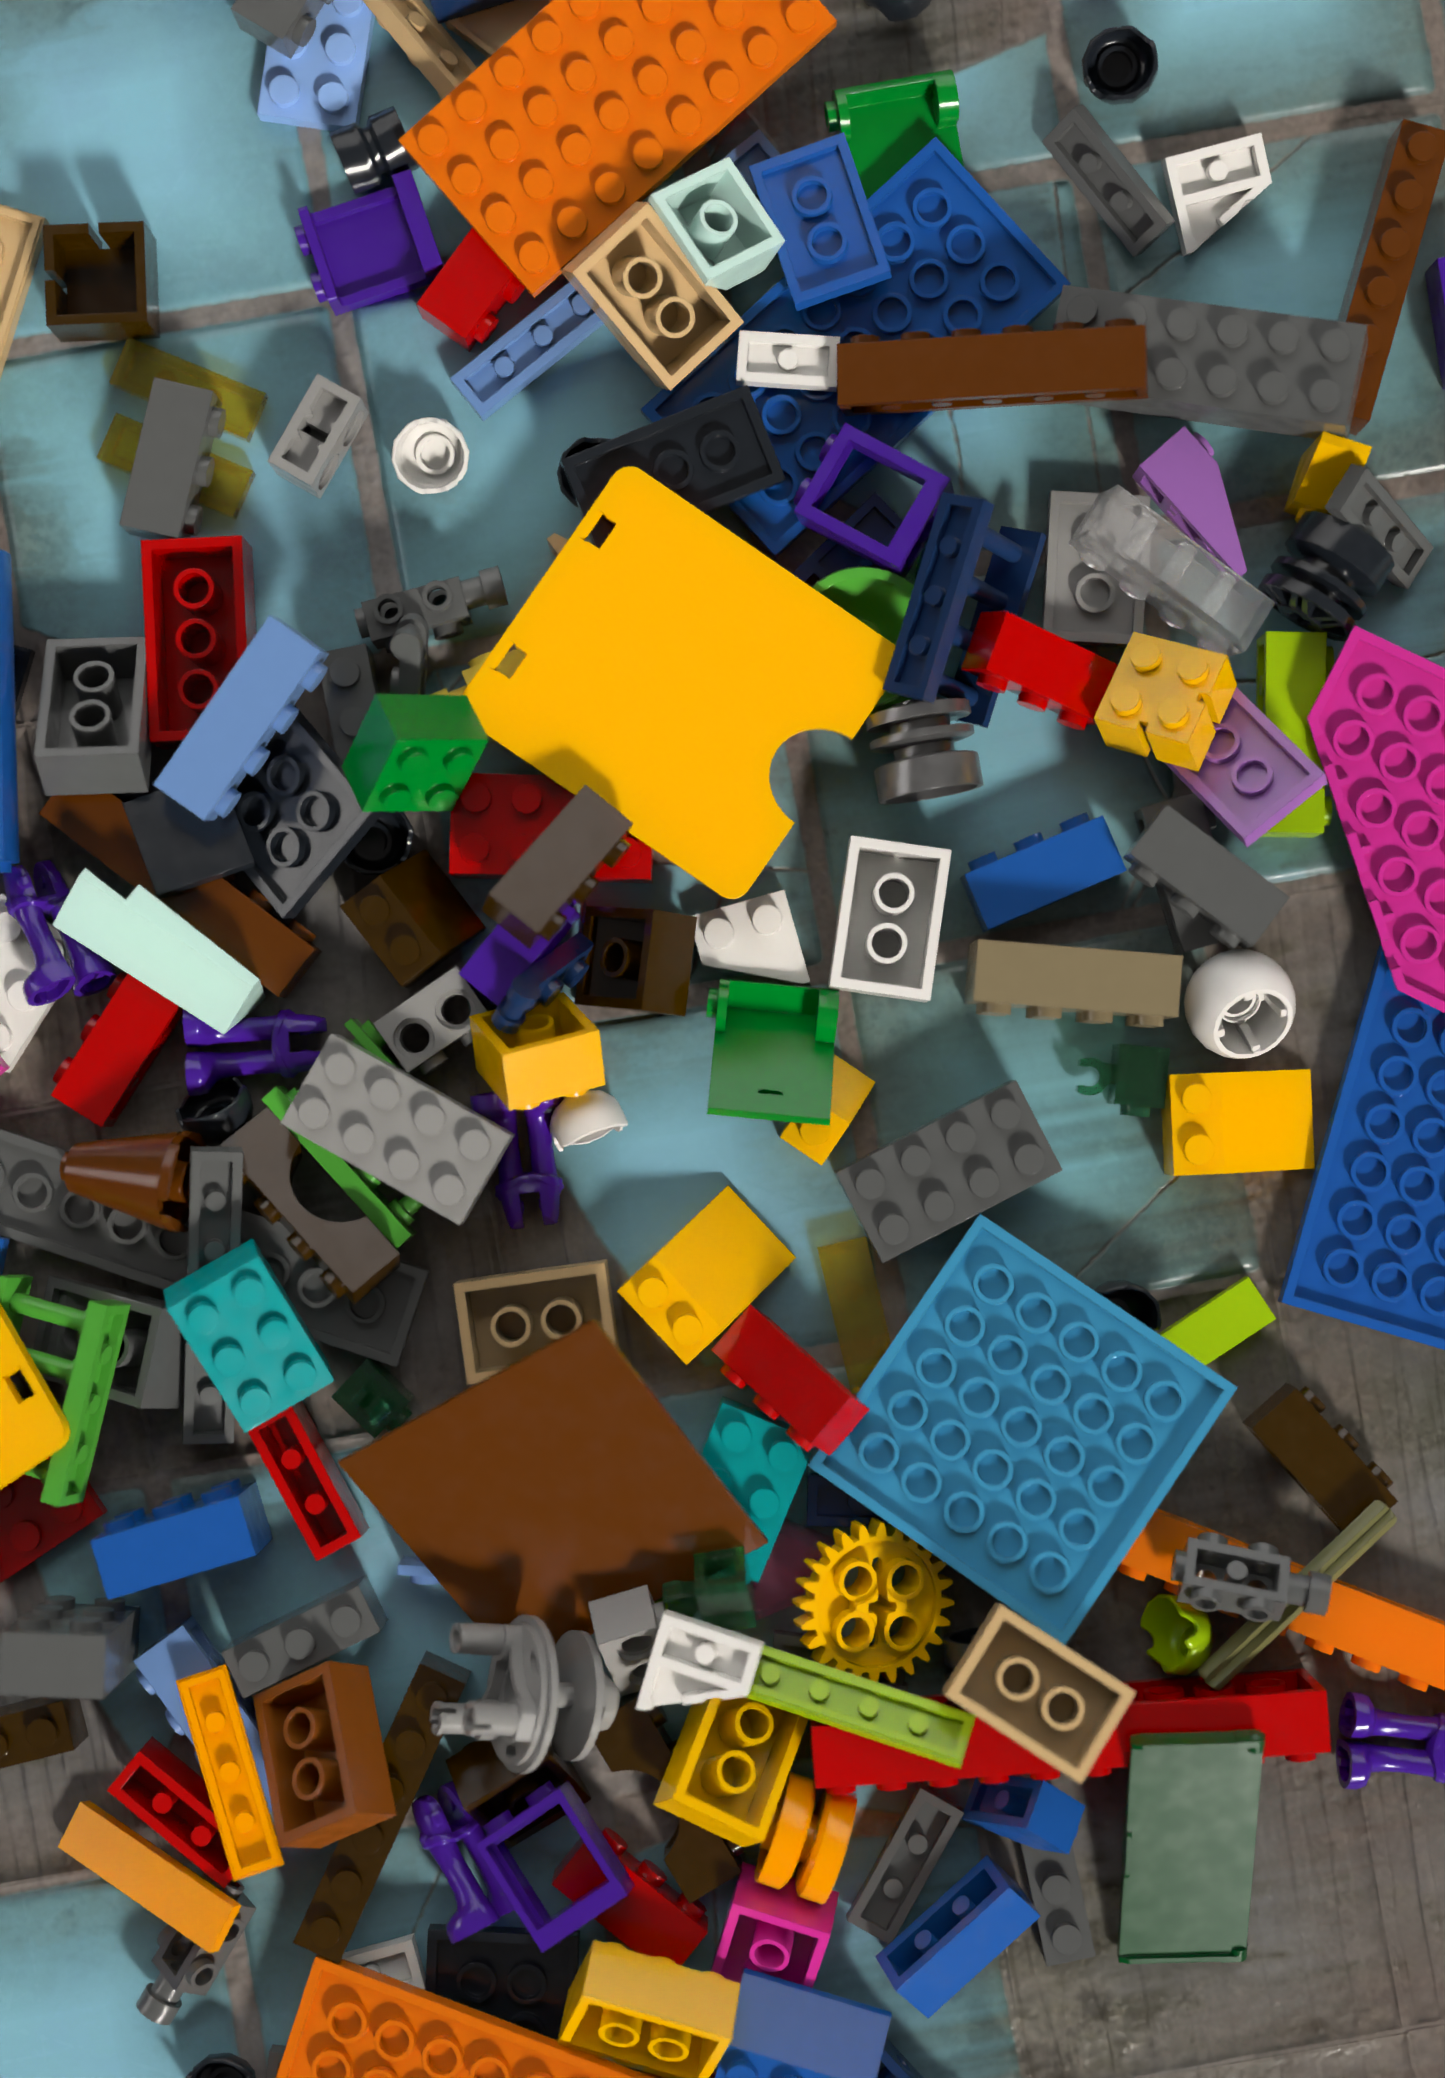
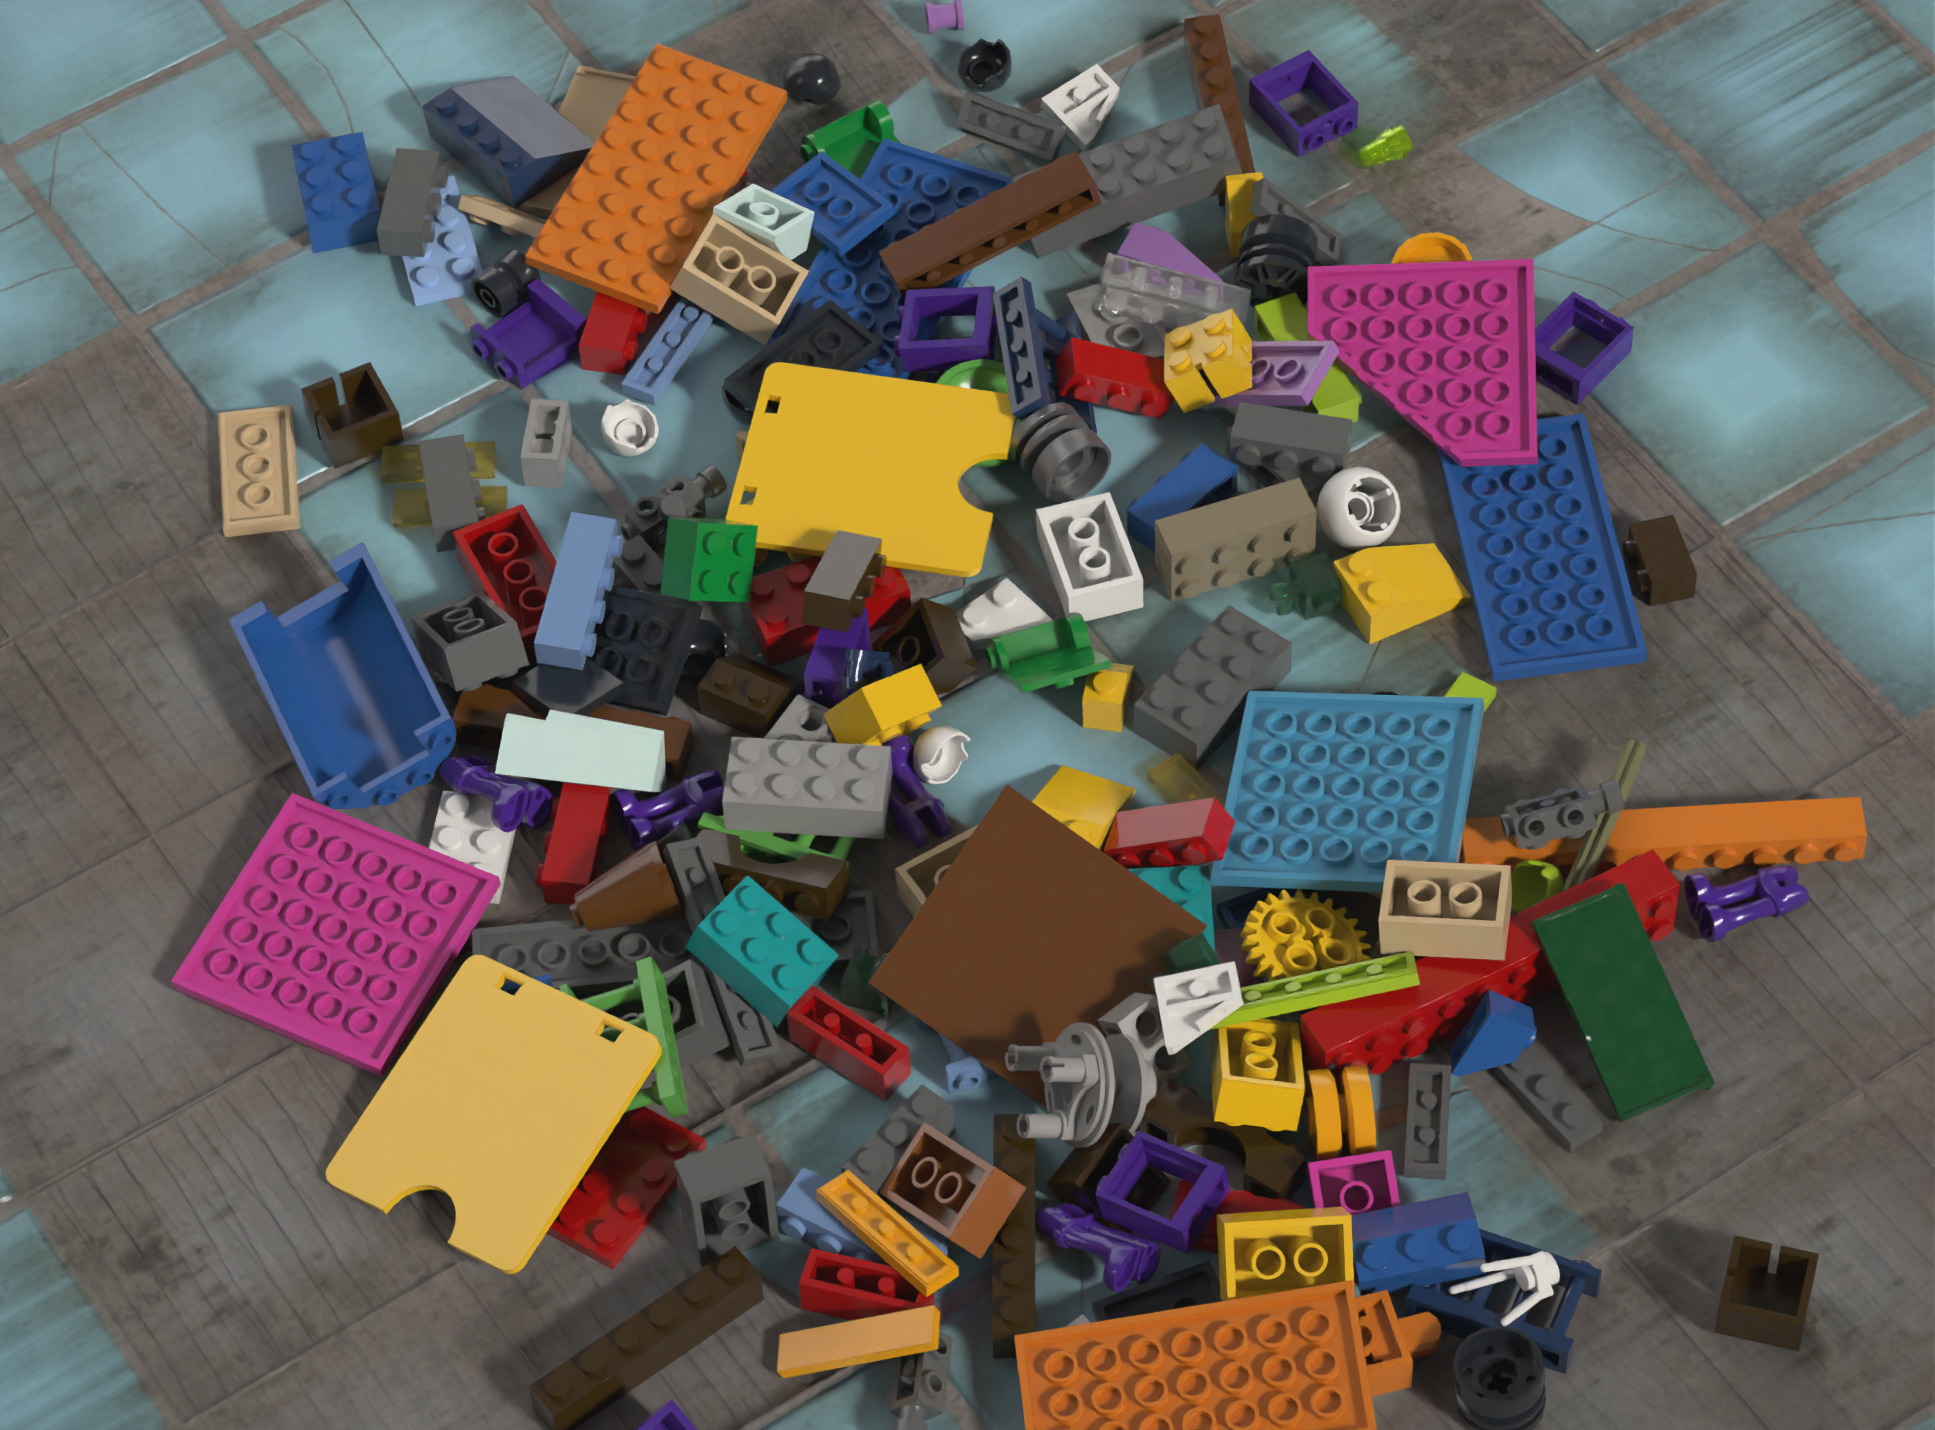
camera: 25 degrees left, 35 degrees down
(181, 1537) = (780, 1104): blue brick -> none
(787, 361) = (850, 281): white plate -> none
(957, 1936) = (1492, 1141): blue brick -> none
(1318, 1455) = (1566, 750): dark brown brick -> none

